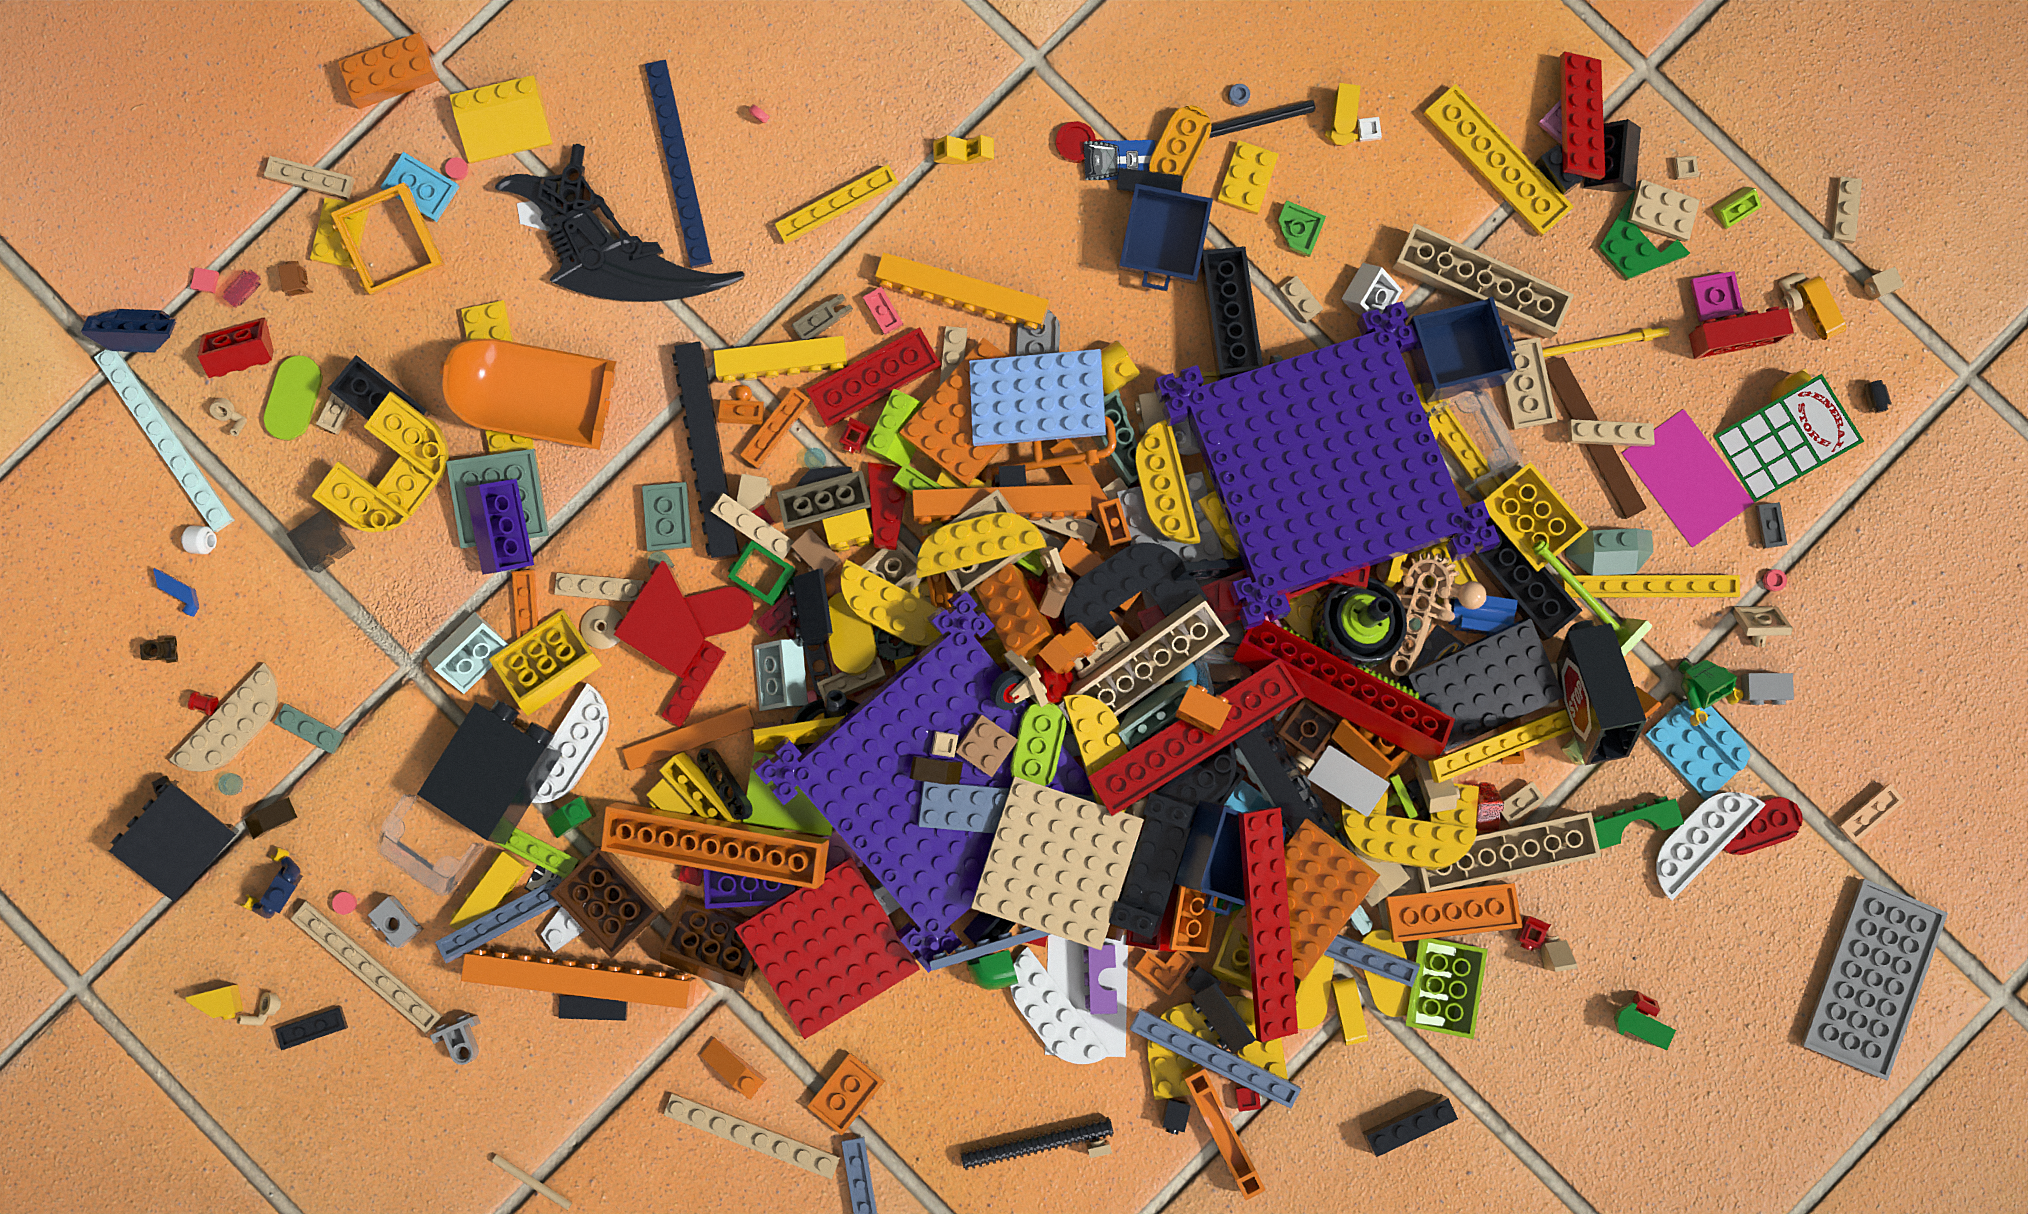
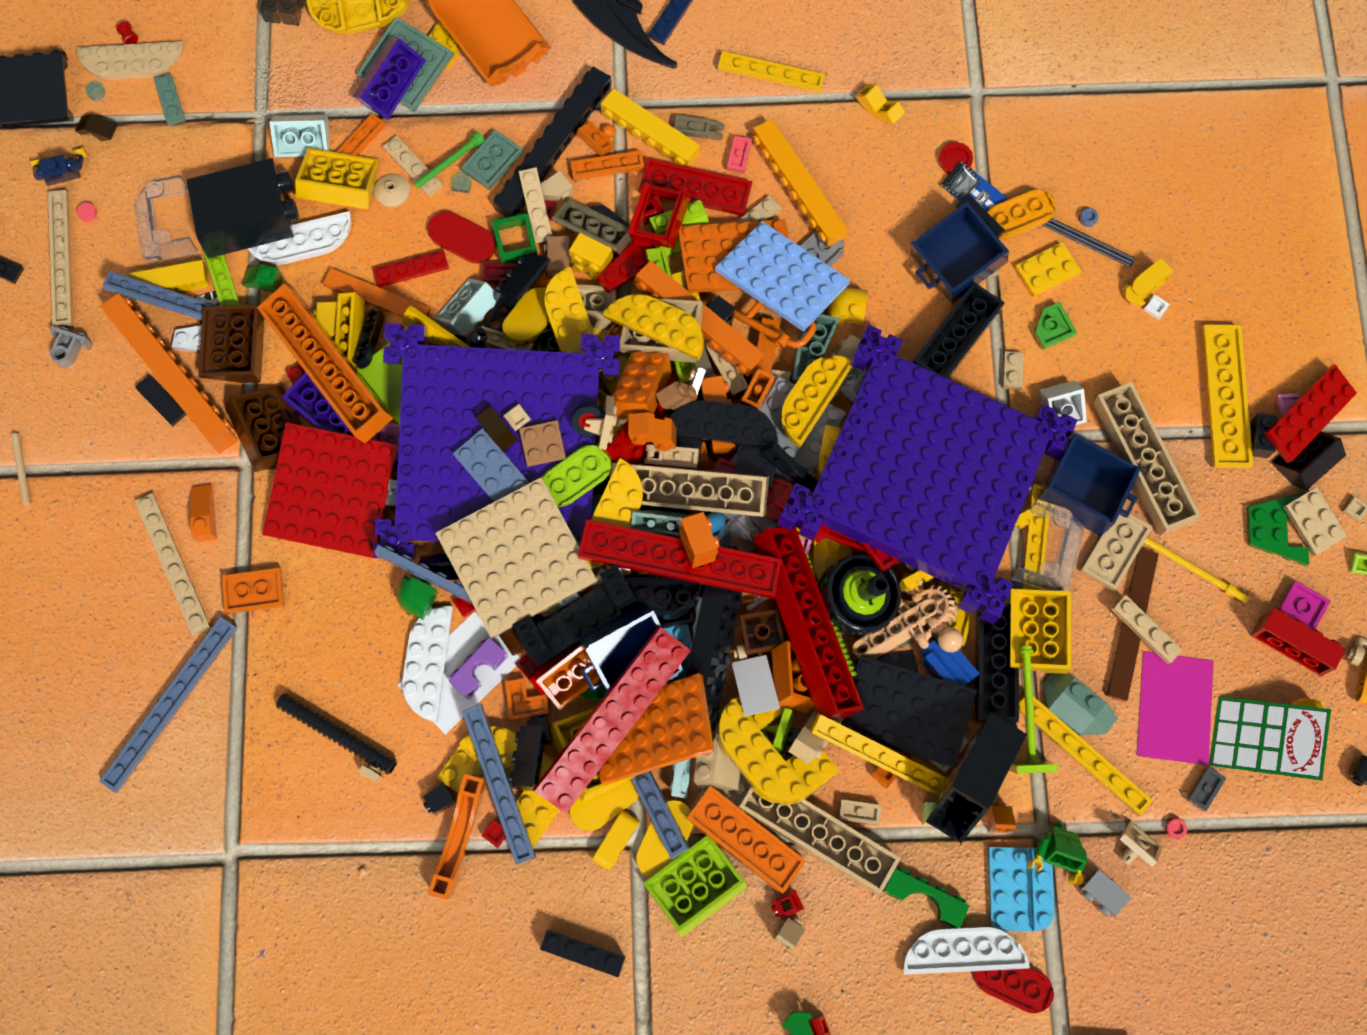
camera: 45 degrees right, 10 degrees down
(407, 925) = (105, 256): light grey brick -> none
(634, 513) = (475, 140): none -> bright green piece
(663, 623) = (427, 215): red slope -> none
(815, 458) = (614, 203): clear light blue tile -> none
(895, 429) = (647, 239): none -> red piece
(1488, 807) = (833, 792): clear red pin -> none

